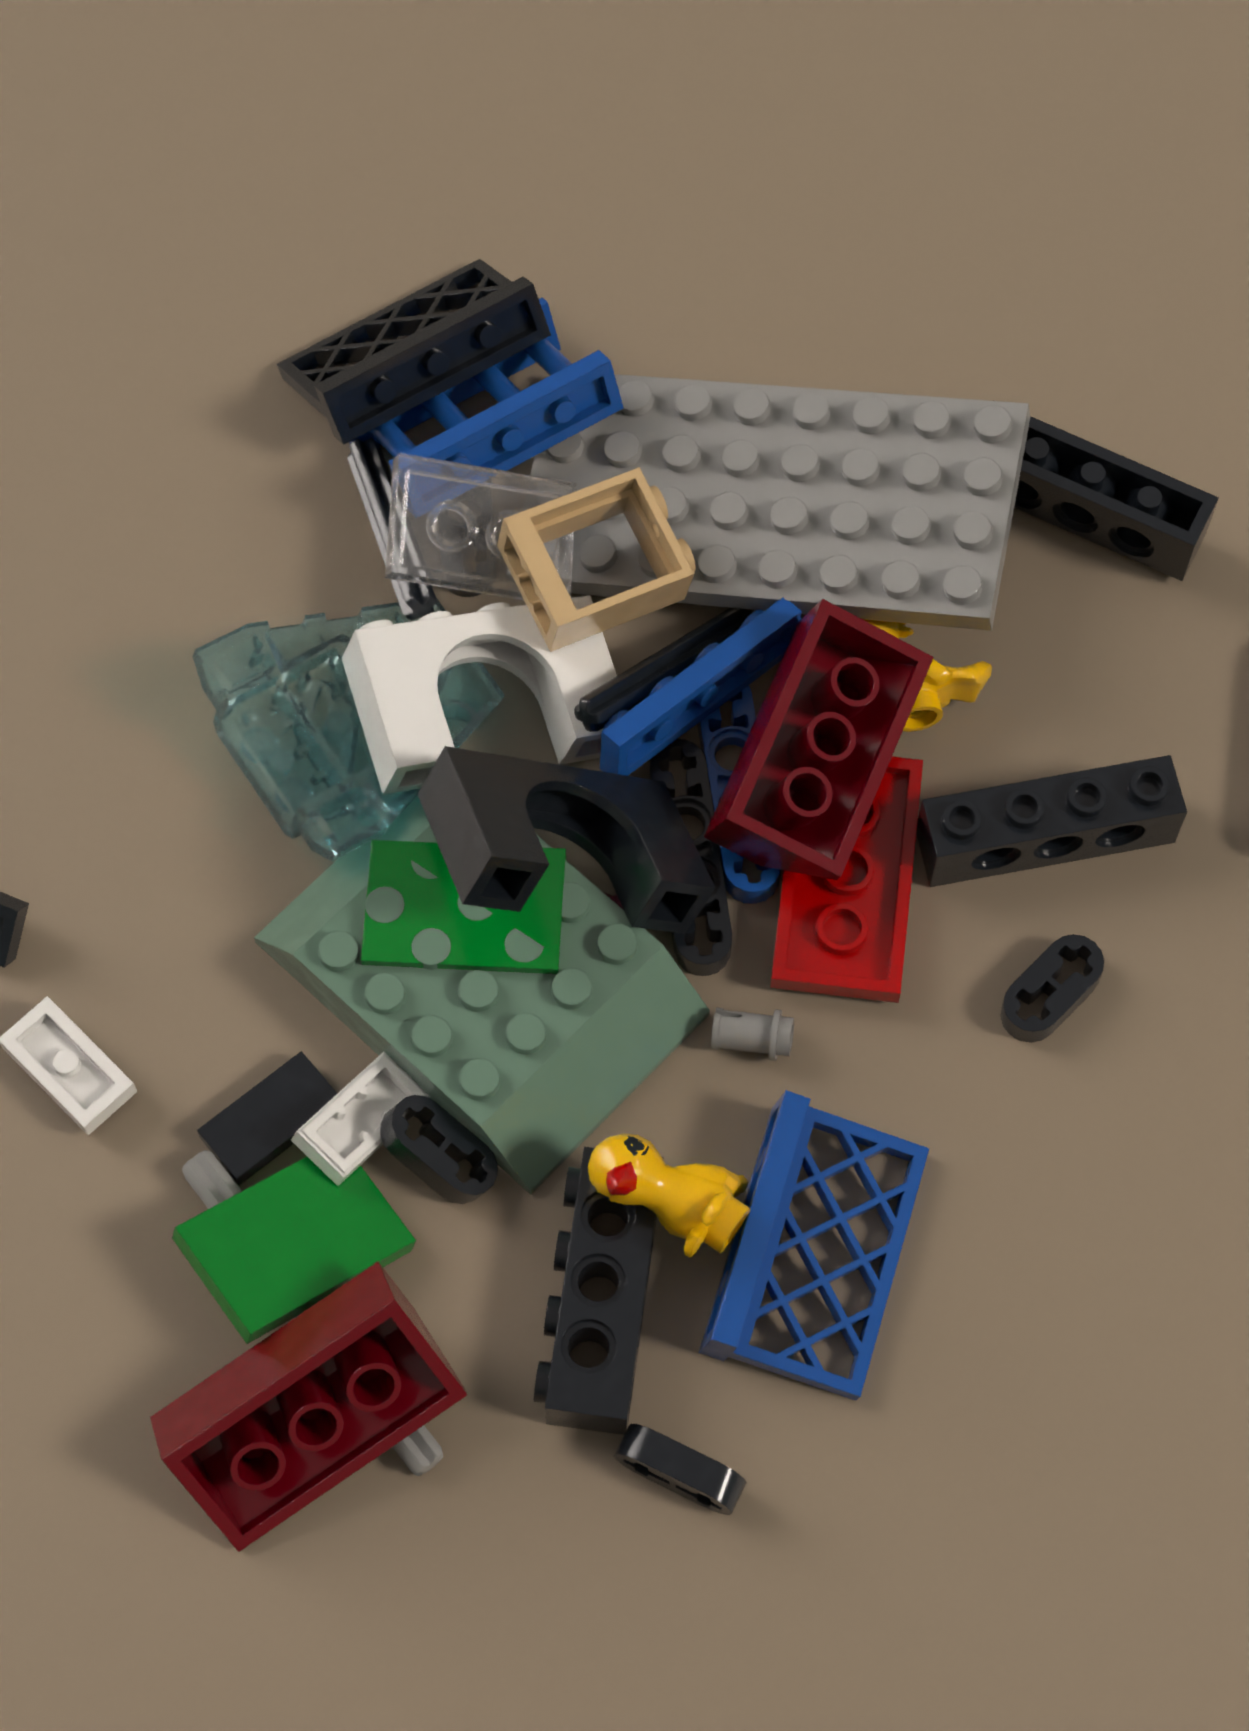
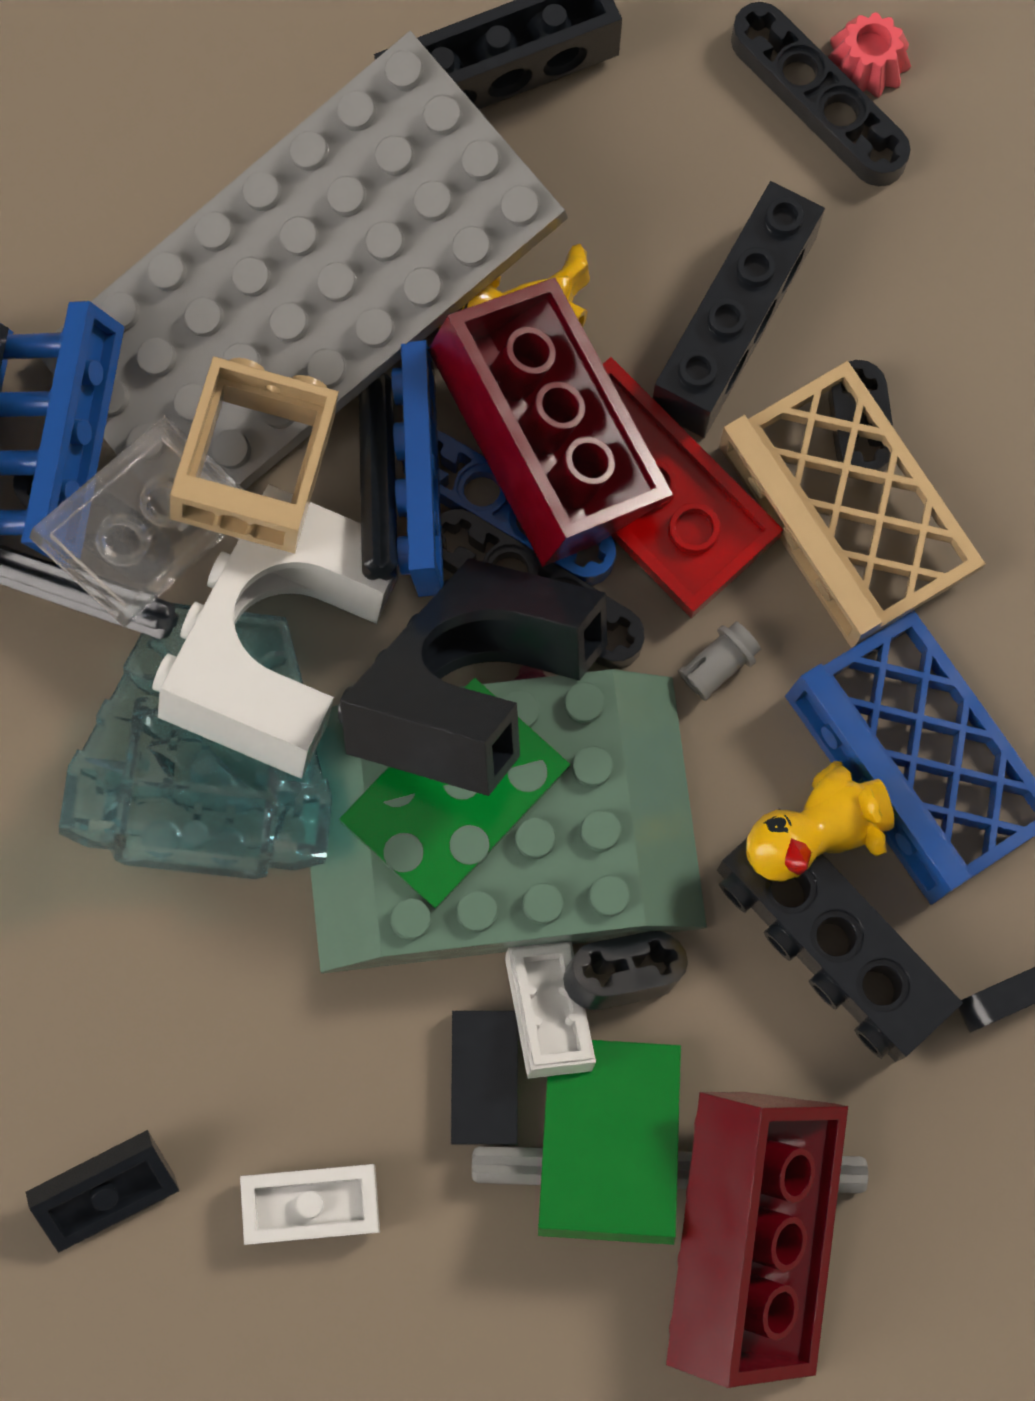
camera: 50 degrees left, 10 degrees up
(916, 1011) = (805, 533): none -> tan fence

